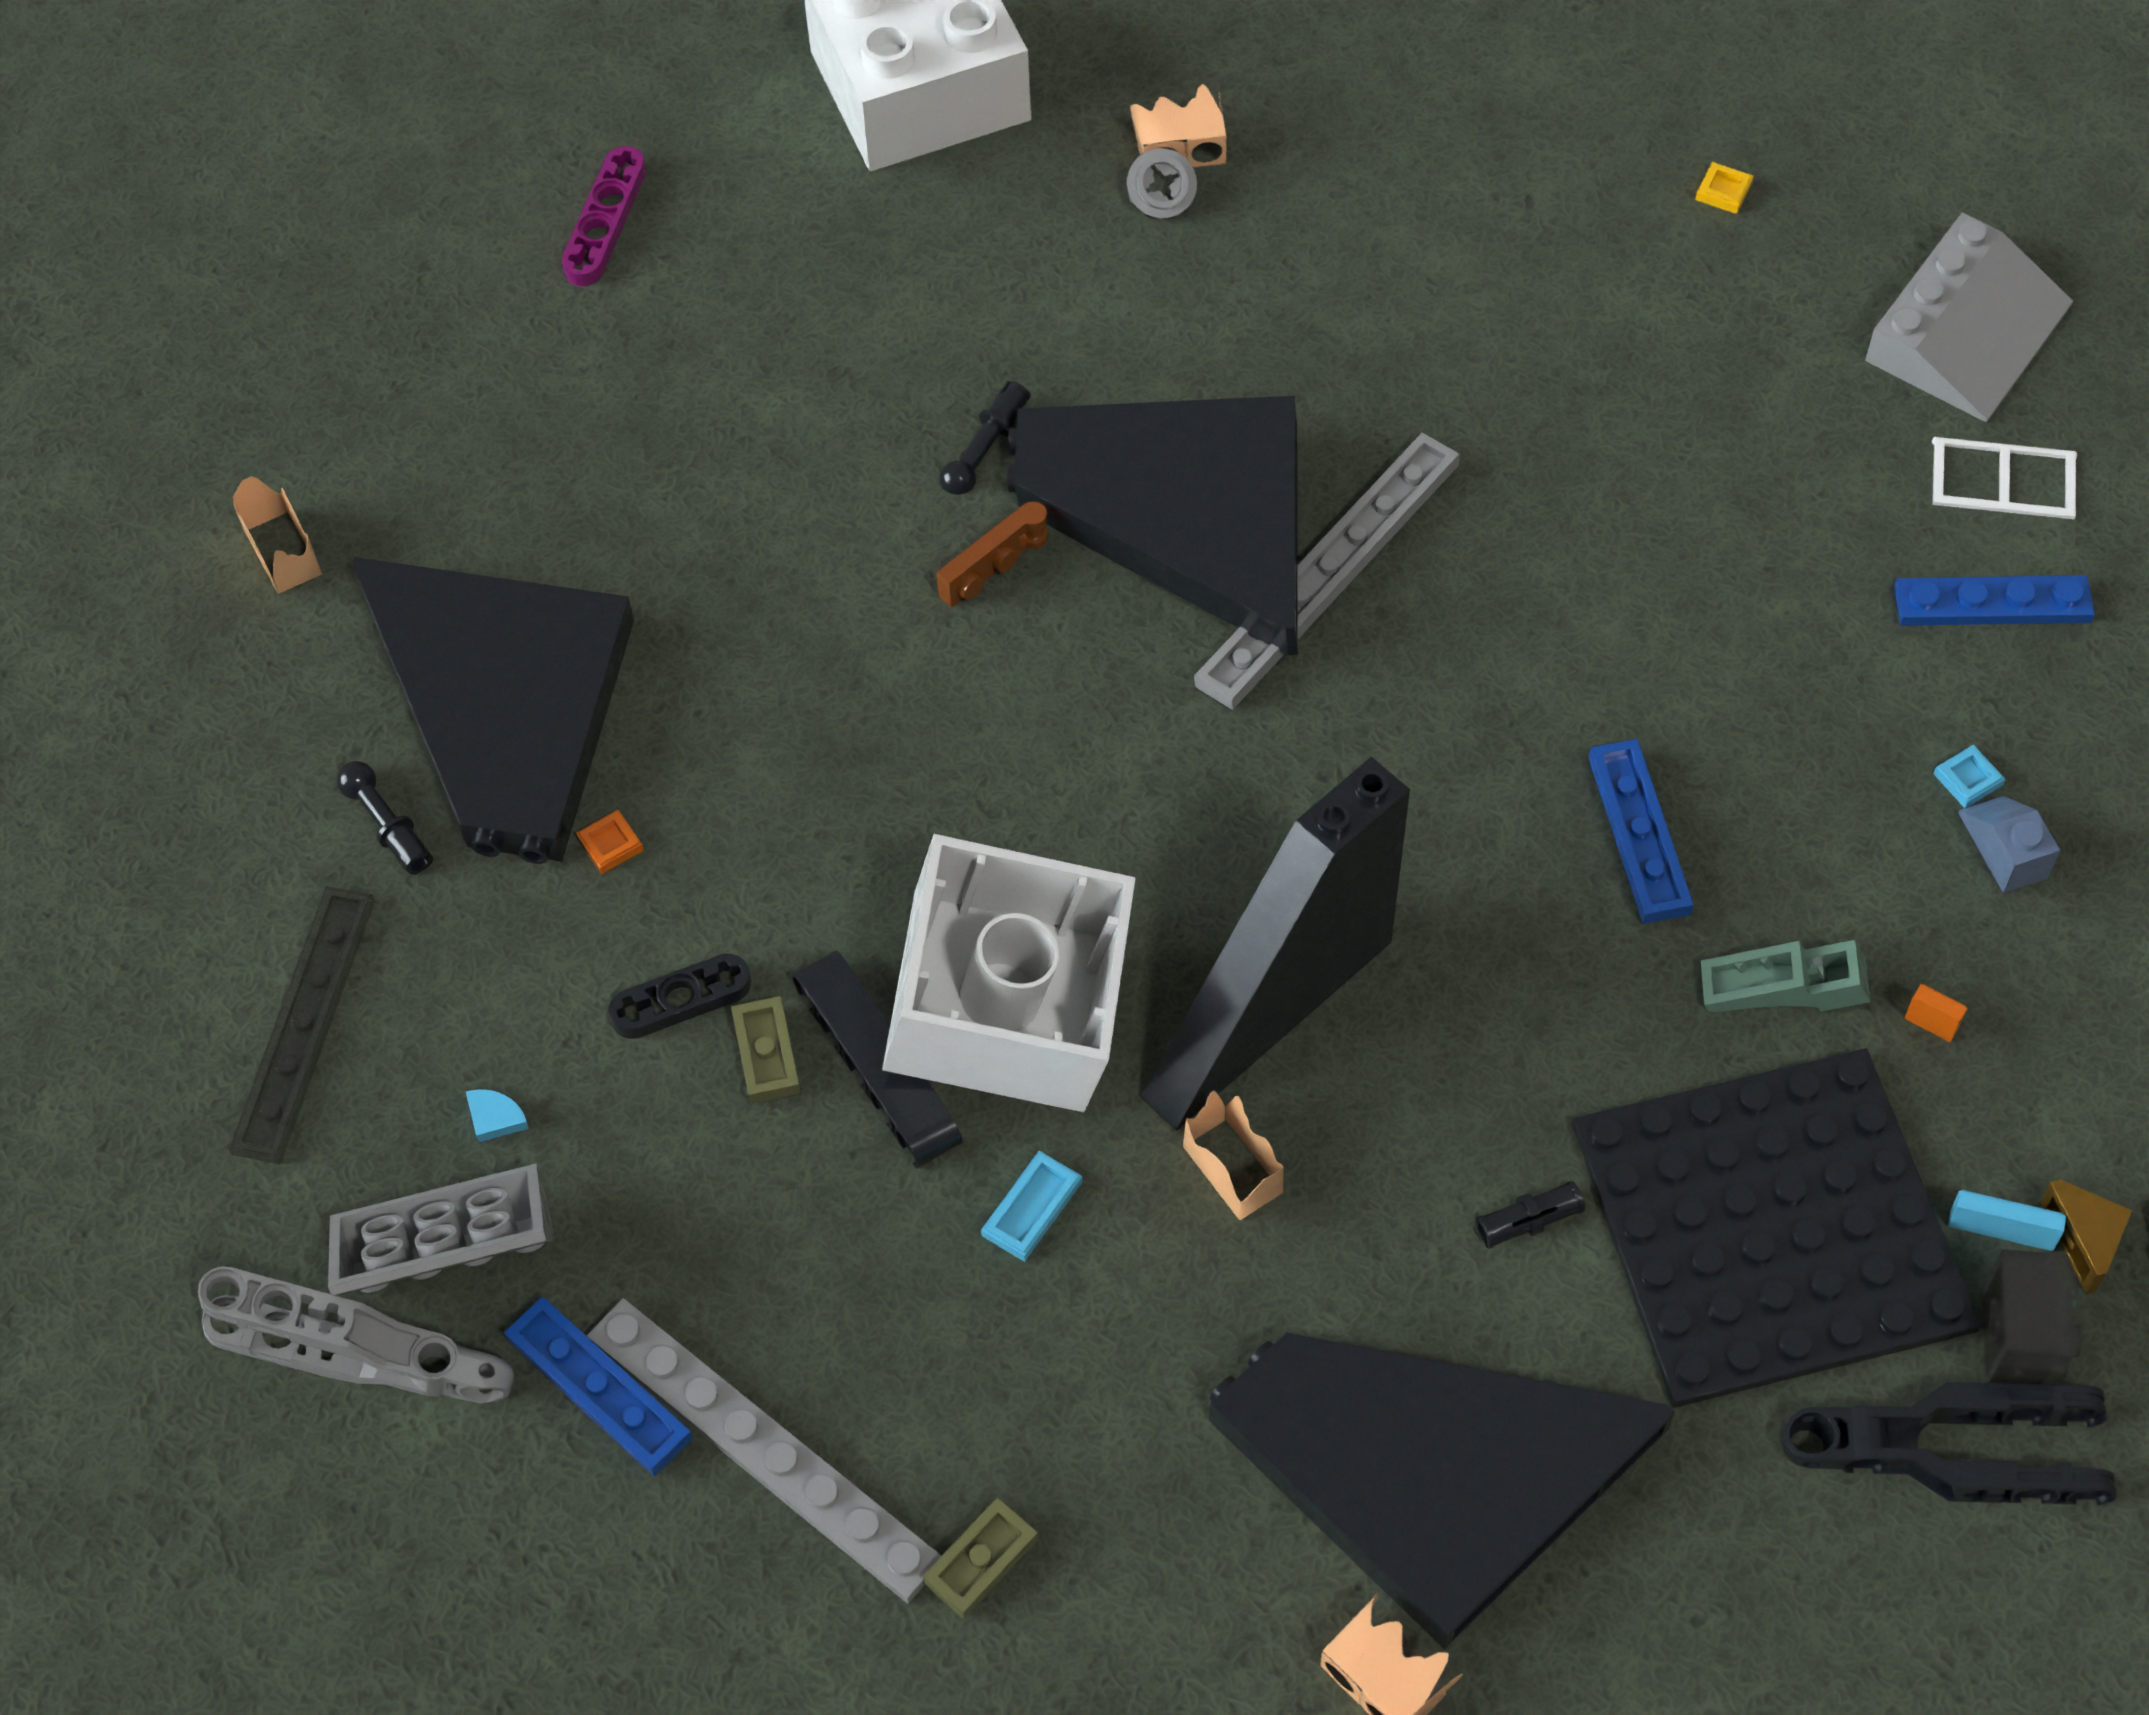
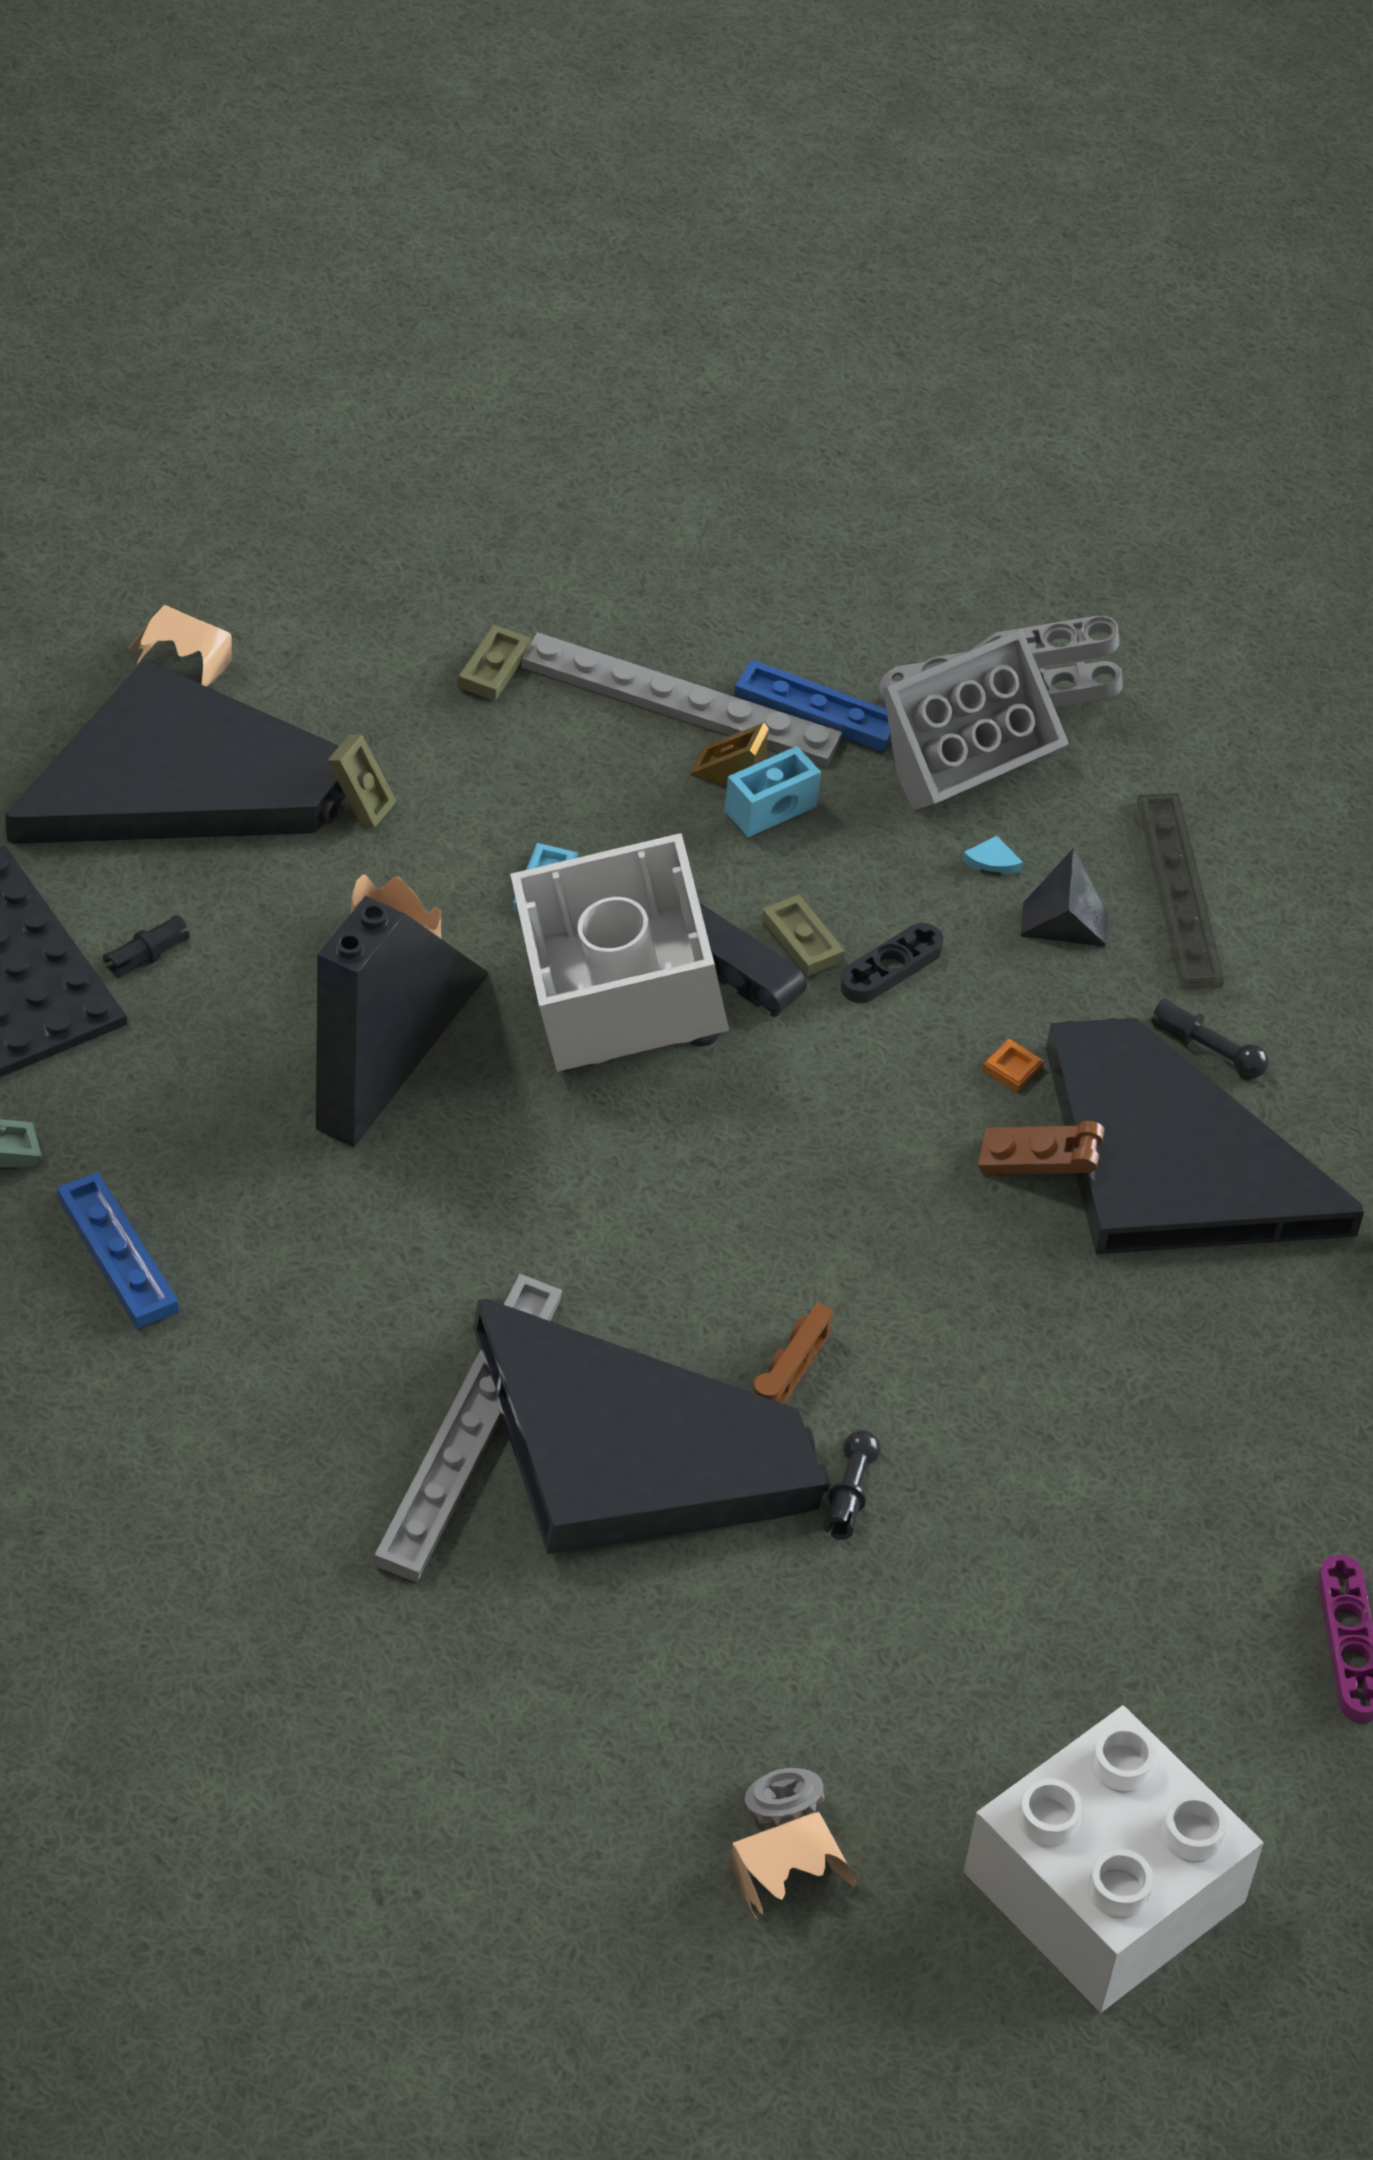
camera: 155 degrees right, 10 degrees down
(455, 1012) = (1066, 907): none -> black slope
(639, 703) = (1041, 1149): none -> dark orange plate
(718, 1237) = (772, 791): none -> medium azure brick
(741, 1315) = (732, 754): none -> pearl gold slope
(1219, 1363) = (362, 780): none -> olive plate
(1724, 187) = (161, 1960): yellow tile -> none

